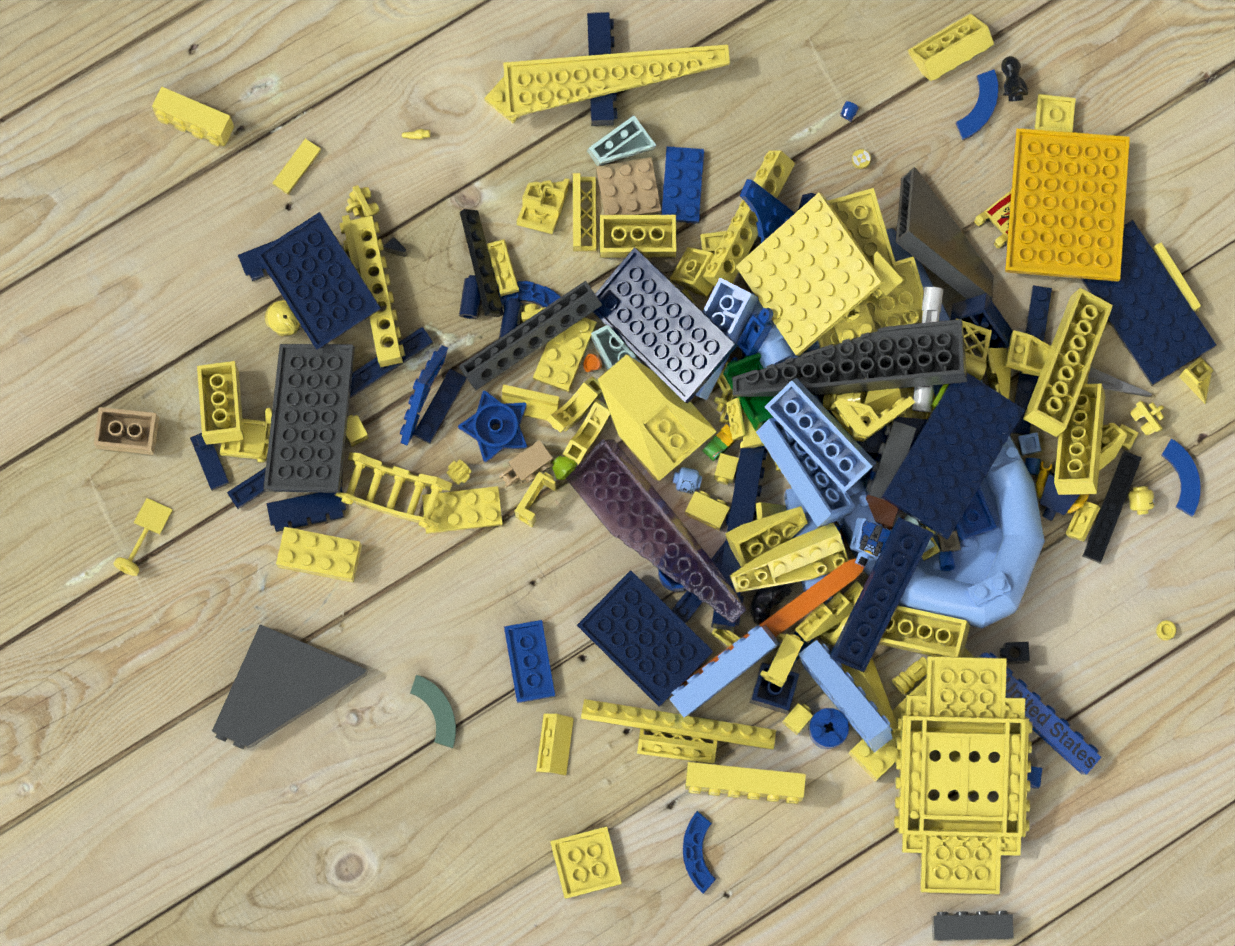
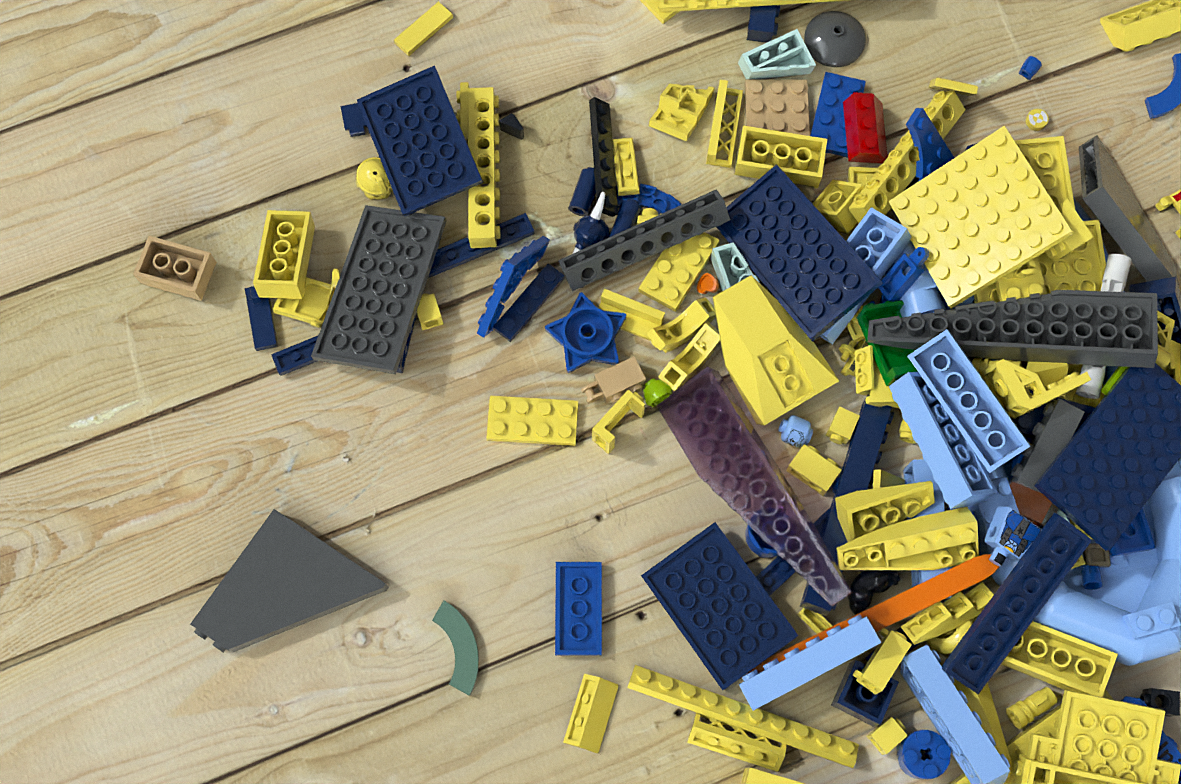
camera: 10 degrees right, 5 degrees down
(151, 517) = (181, 368): light yellow piece -> none
(308, 506) = (353, 387): dark blue windscreen -> none
(318, 554) = (359, 441): light yellow brick -> none
(358, 203) = (481, 74): light yellow hips -> none
(400, 476) = (470, 370): light yellow fence -> none
(417, 134) = (560, 17): light yellow piece -> none
(458, 472) = (536, 376): light yellow gear -> none
(482, 332) = (591, 228): none -> dark blue helmet
(666, 122) = (831, 47): none -> dark grey dish
(709, 197) = (865, 128): none -> red slope
(719, 444) = (839, 396): leg -> none
(781, 144) = (949, 85): none -> light yellow tile

